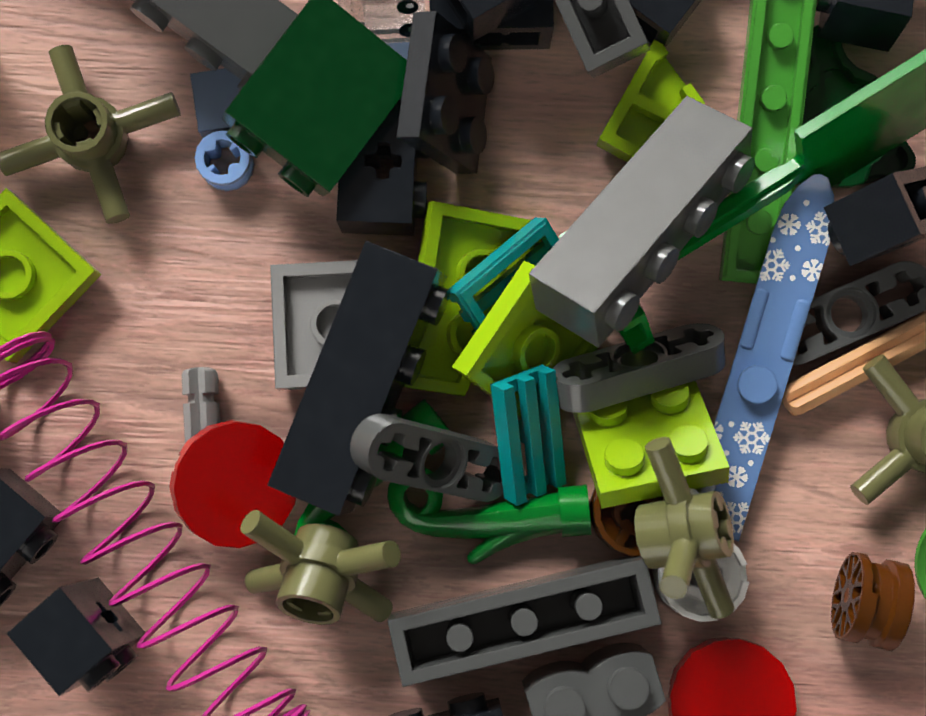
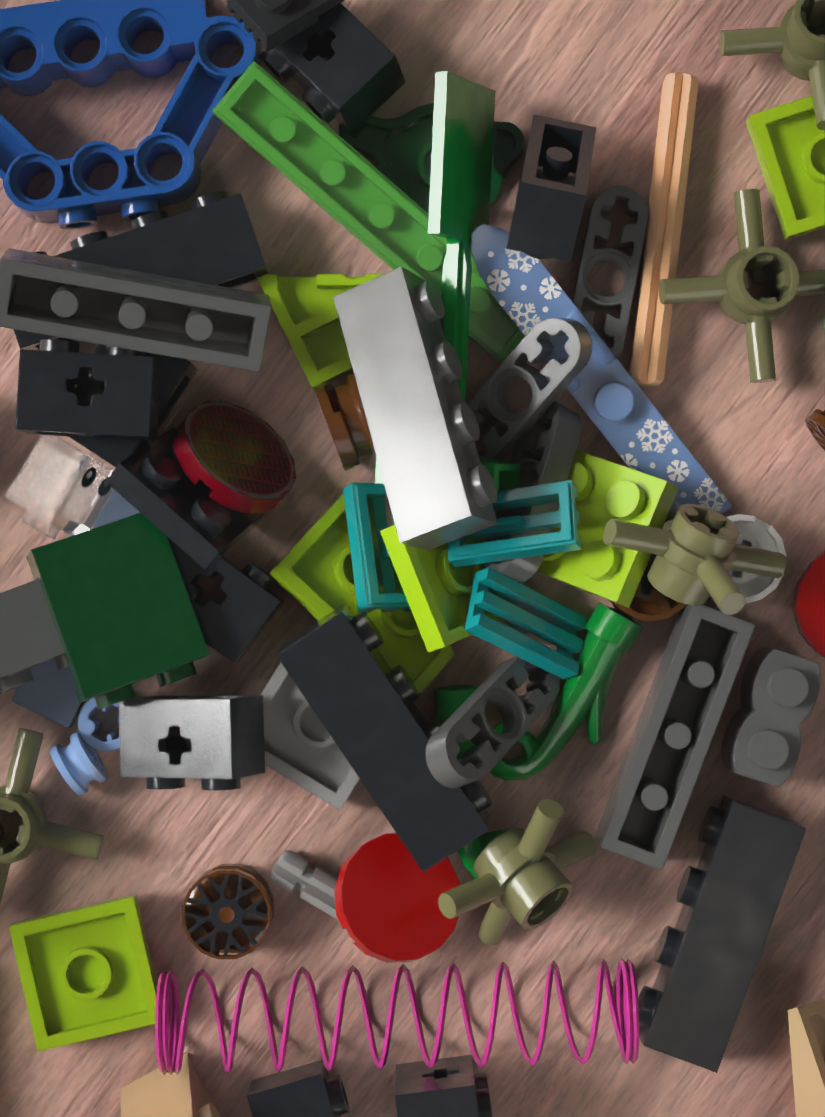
camera: 55 degrees left, 5 degrees up
(133, 354) = (228, 911): none -> reddish brown wheel
(173, 158) = (78, 764): none -> light blue bush
(254, 228) = (192, 738): none -> brick
(502, 111) = (235, 456): none -> tile
(588, 179) = (346, 421): none -> reddish brown wheel
(593, 370) = (527, 546): none -> teal tile
(757, 289) = (536, 349): none -> dark grey beam

